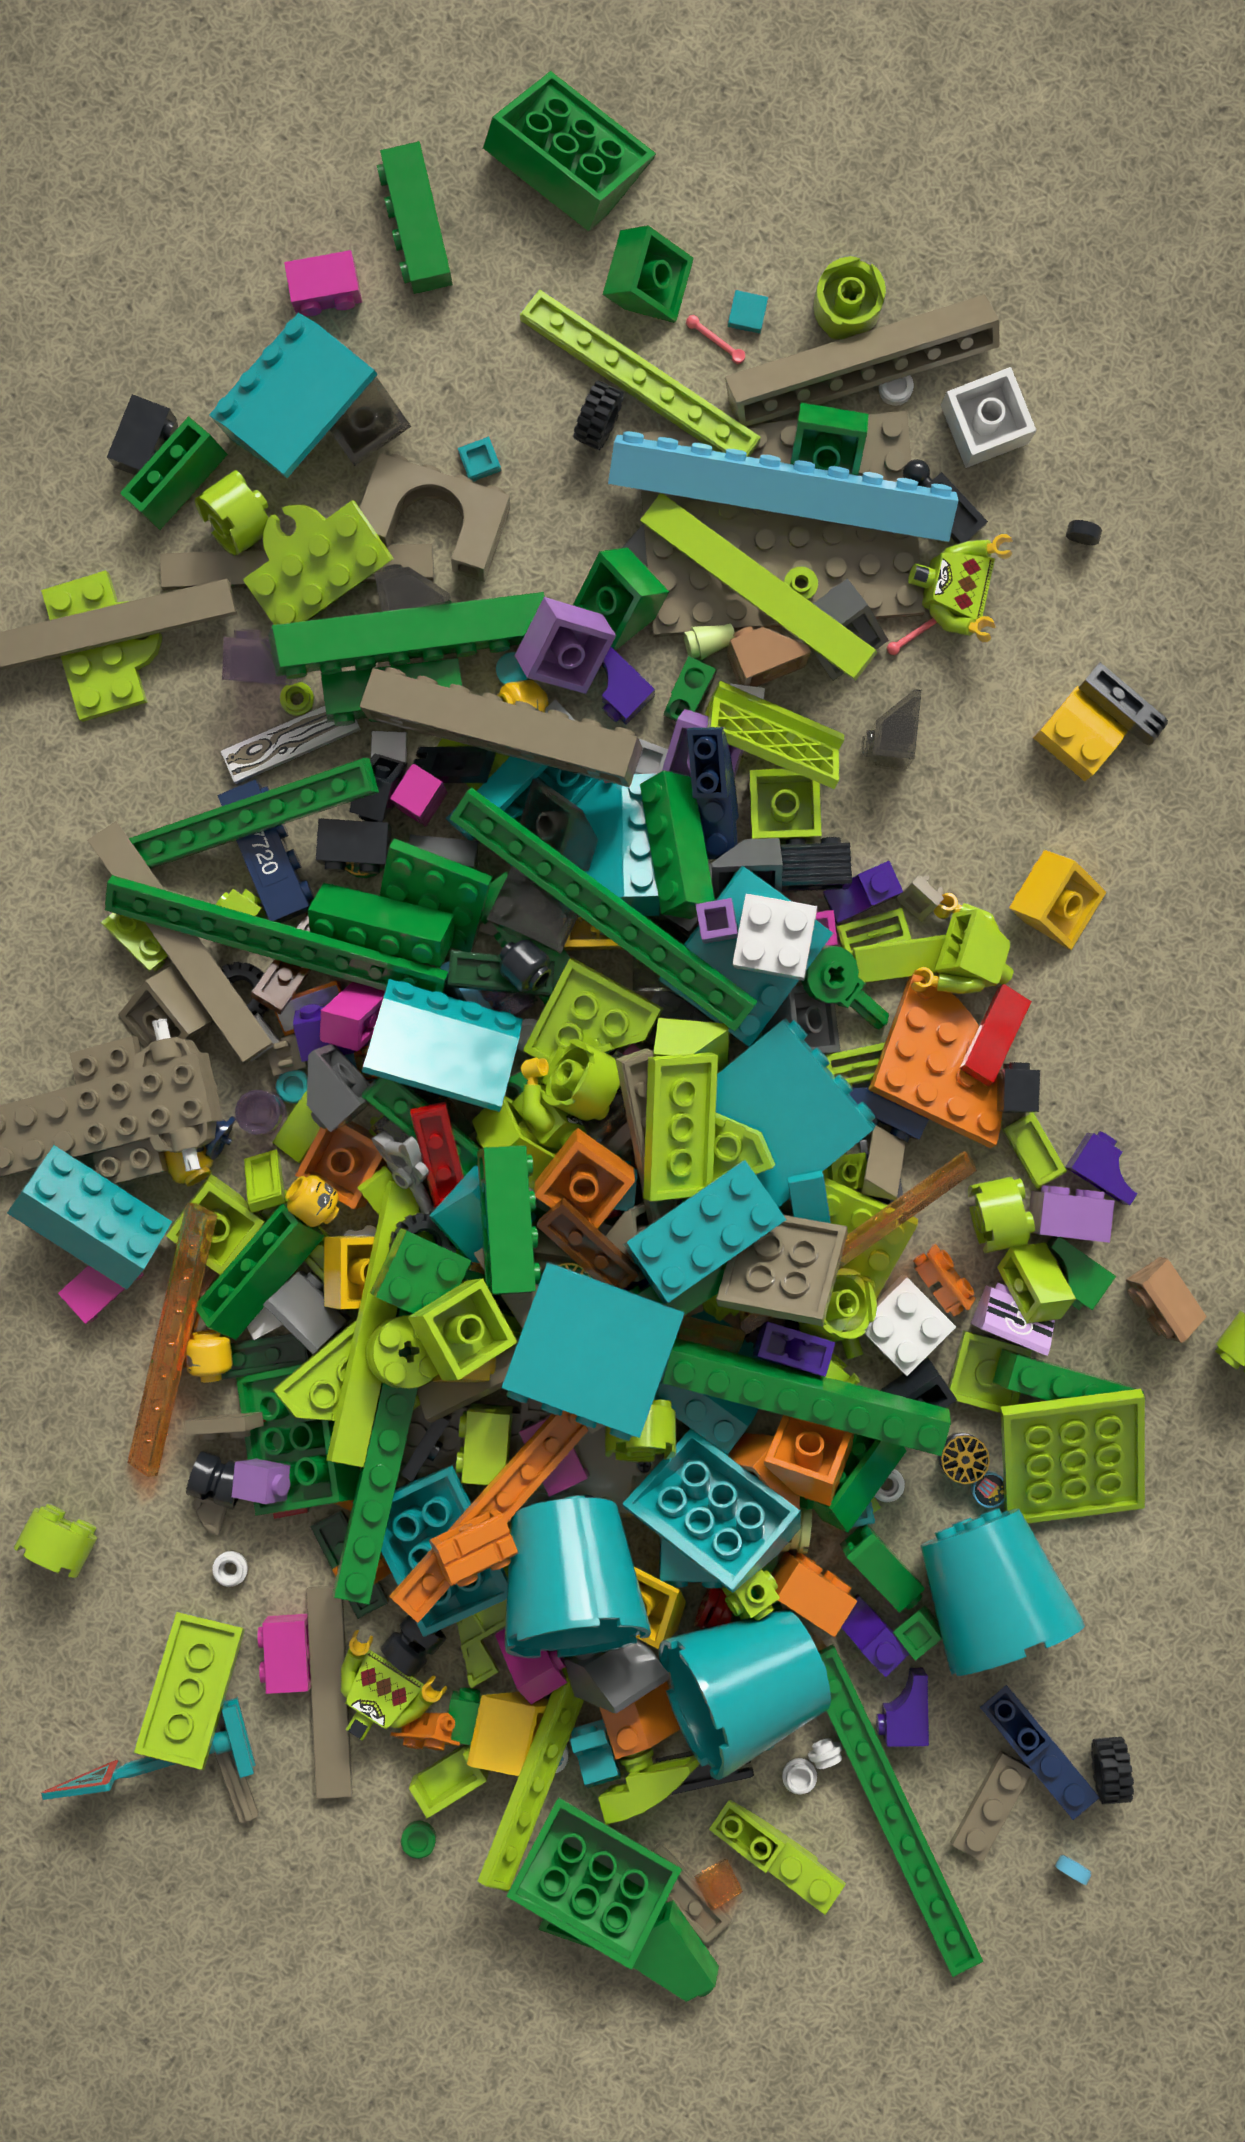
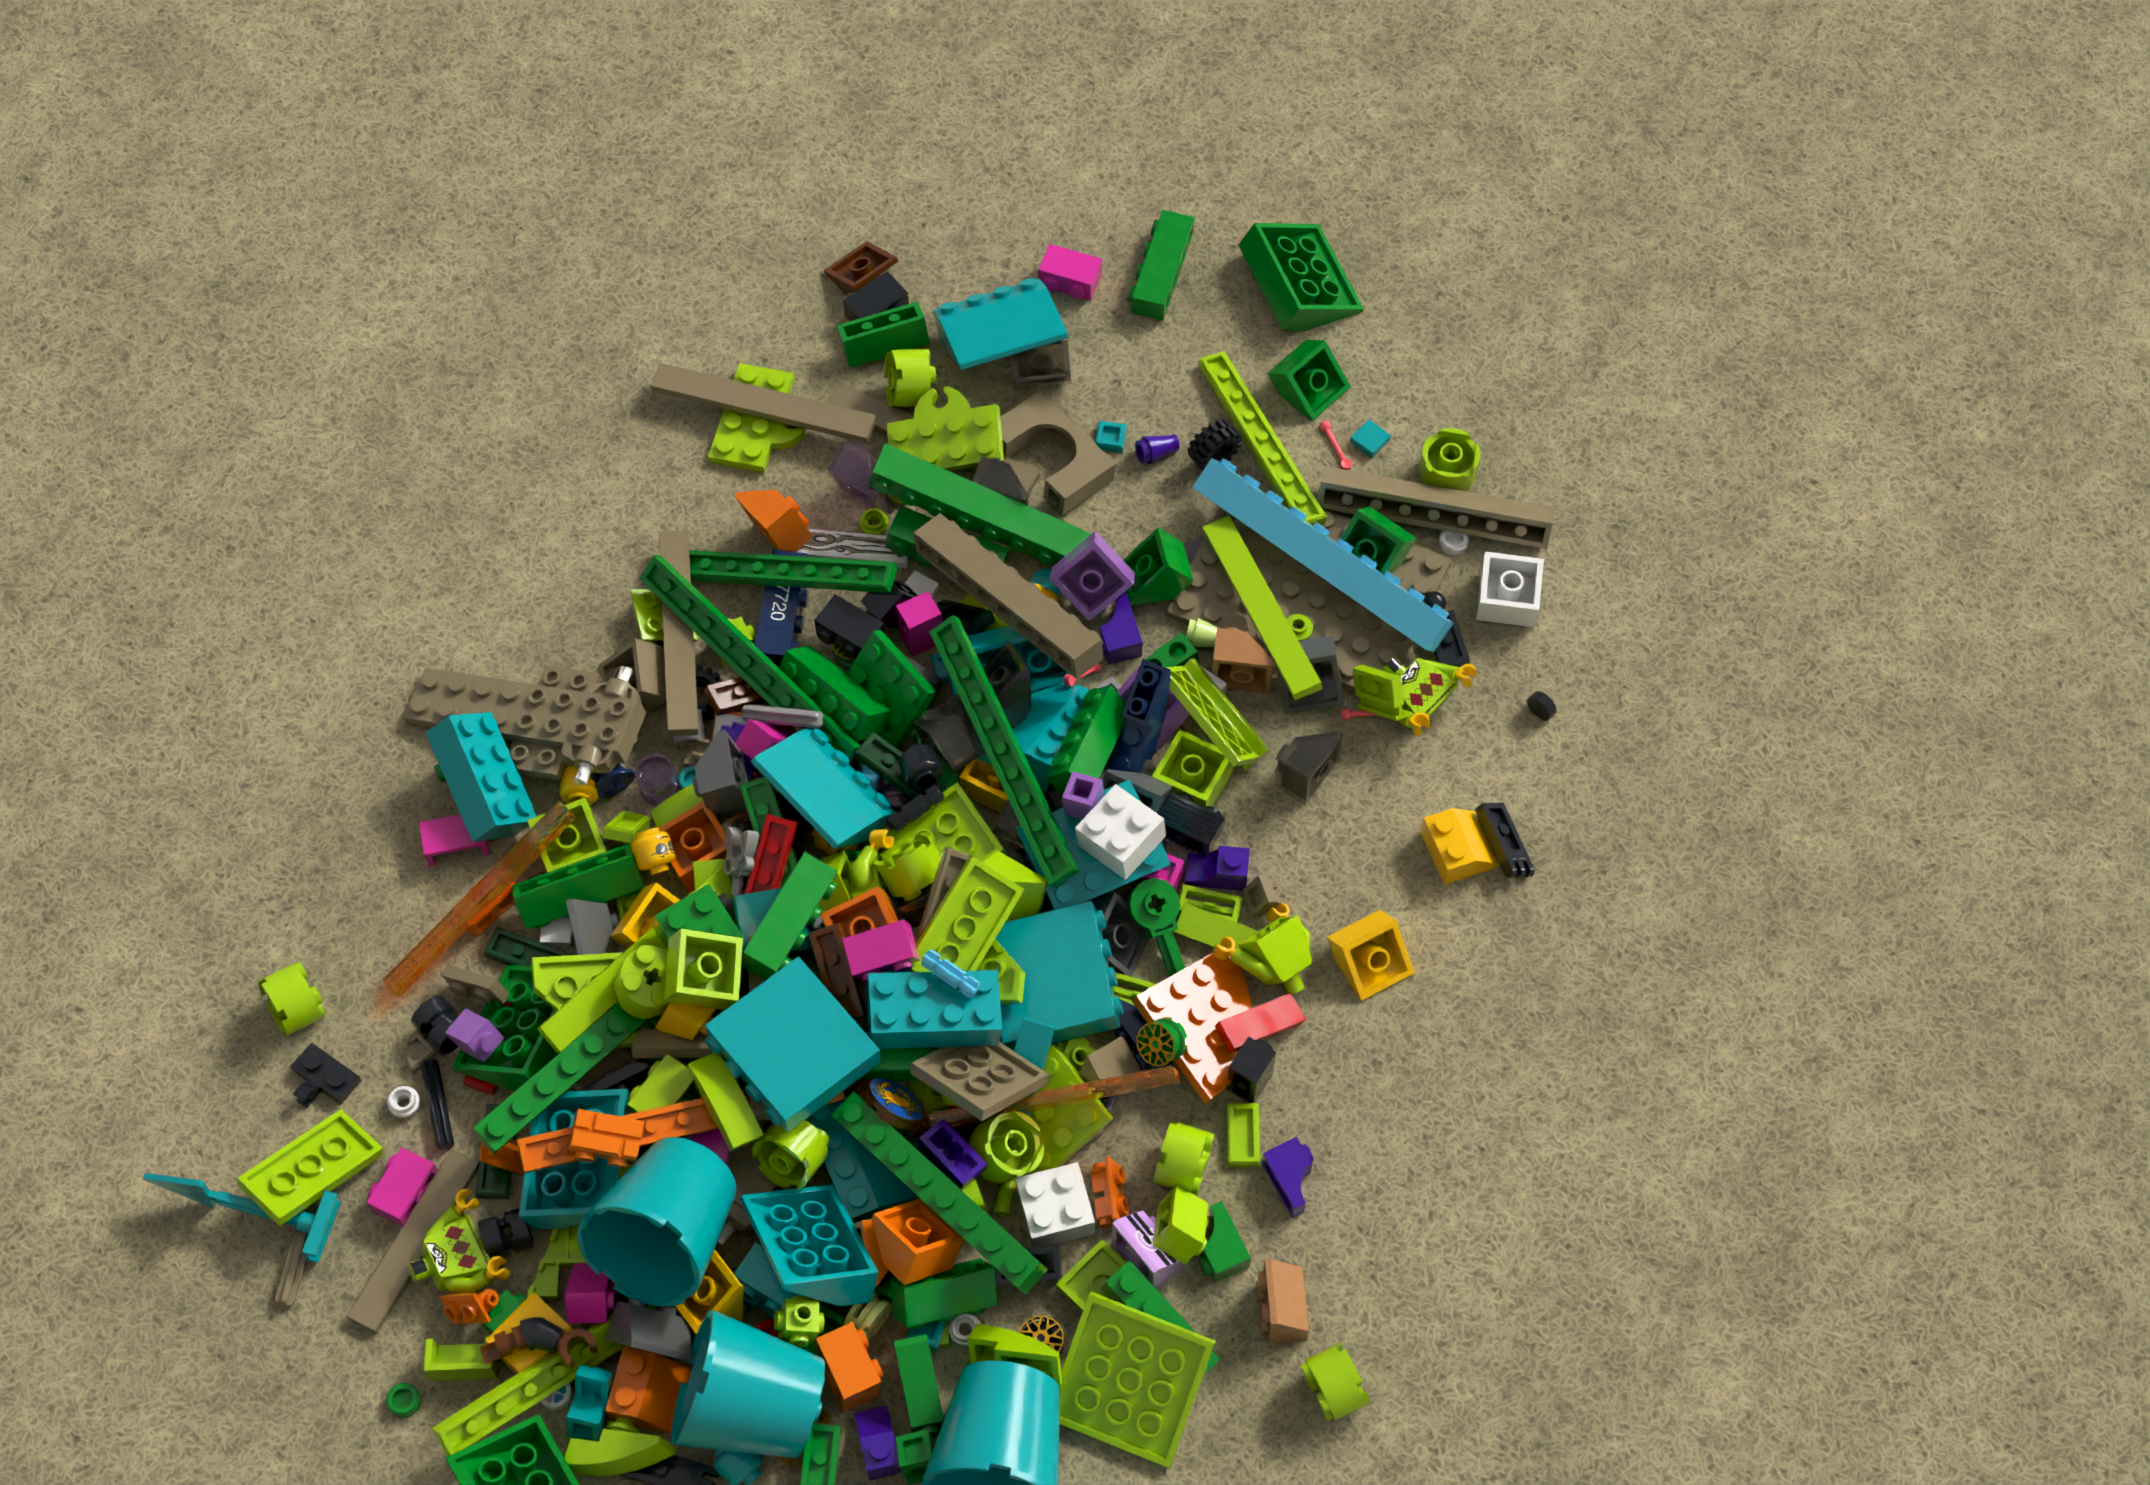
camera: 30 degrees right, 25 degrees down
(96, 400) = (860, 267): none -> reddish brown slope
(137, 1586) = (322, 1075): none -> black plate
(202, 762) = (776, 518): none -> orange slope
(208, 1355) = (498, 927): yellow head -> none
(263, 1552) = (437, 1104): none -> black axle
(348, 982) = (783, 716): none -> light grey axle
(517, 1739) = (541, 1335): none -> reddish brown piece
(534, 448) = (1155, 447): none -> dark purple cone
(543, 1008) = (915, 808): none -> black axle
(561, 1438) = (725, 1101): none -> lime slope
(621, 1206) = (881, 950): none -> dark pink brick
(708, 1198) = (950, 973): none -> medium azure axle
(713, 1335) = (894, 1103): none -> tile
(923, 614) = (1379, 692): none -> lime plate
(923, 1118) = (1162, 1041): none -> green wheel
(954, 1495) = (1001, 1344): none -> lime slope
(1069, 1216) = (1241, 1186): medium lavender brick -> none

